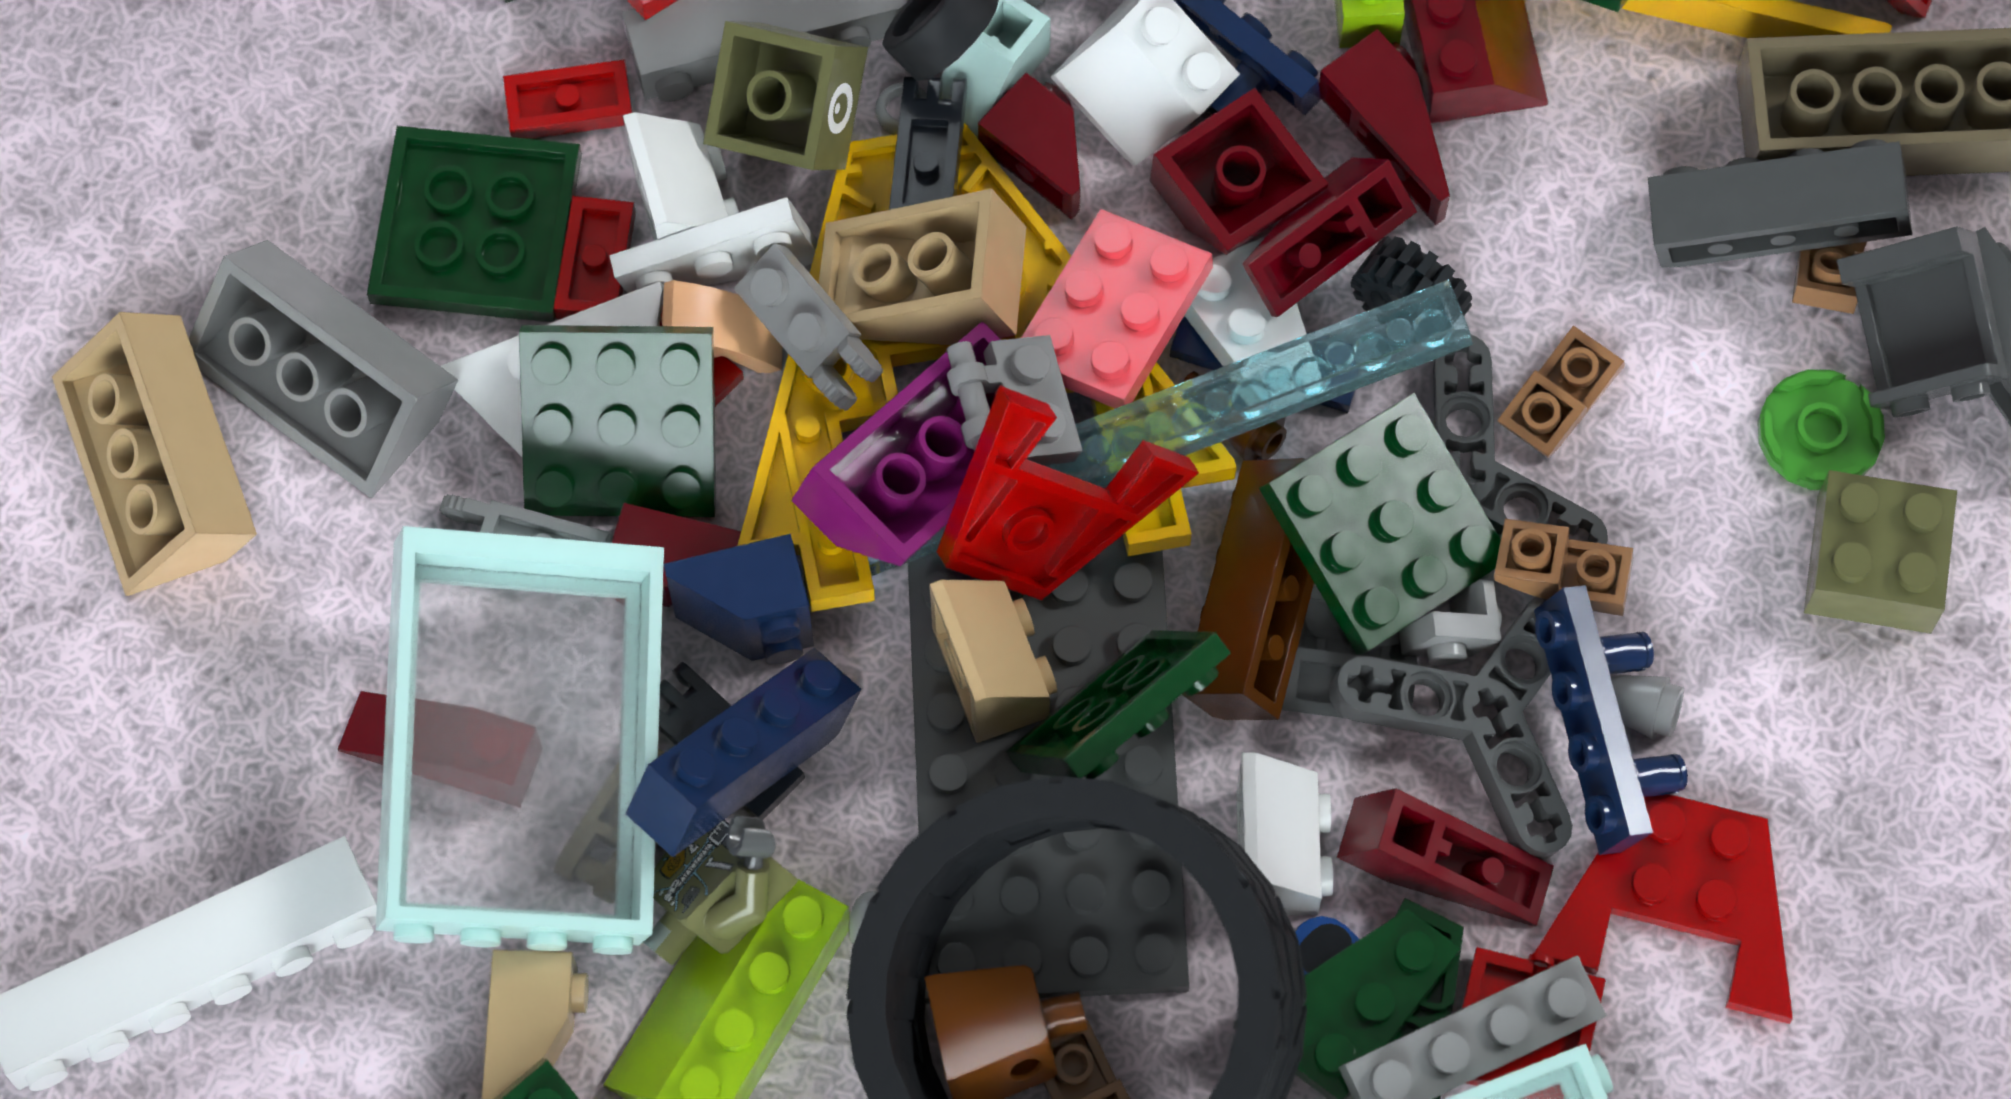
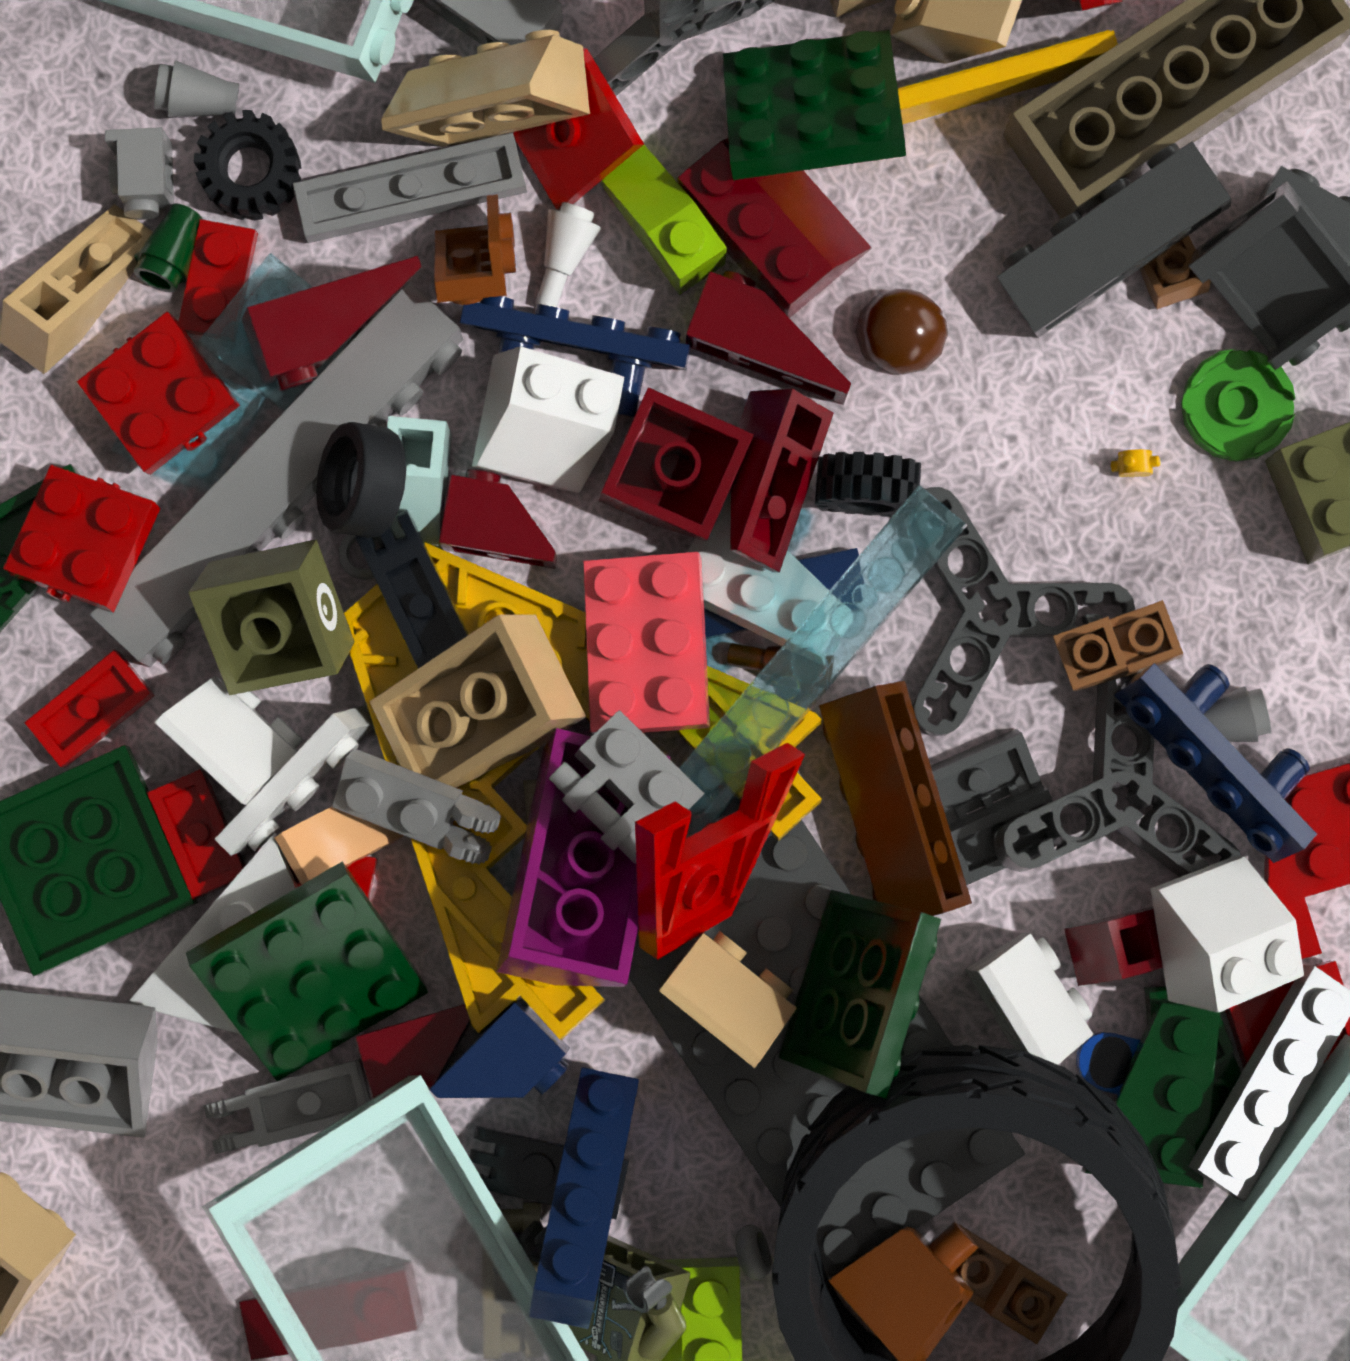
camera: 35 degrees left, 15 degrees up
(1384, 523) = (964, 697): plate -> none
(1456, 634) = (1073, 736): light grey bracket -> none
(1504, 873) = (1224, 936): none -> white slope
(1531, 188) = (901, 331): none -> reddish brown hair
(1561, 392) = (1024, 492): medium nougat slope -> none
(1686, 424) = (1135, 463): none -> yellow piece

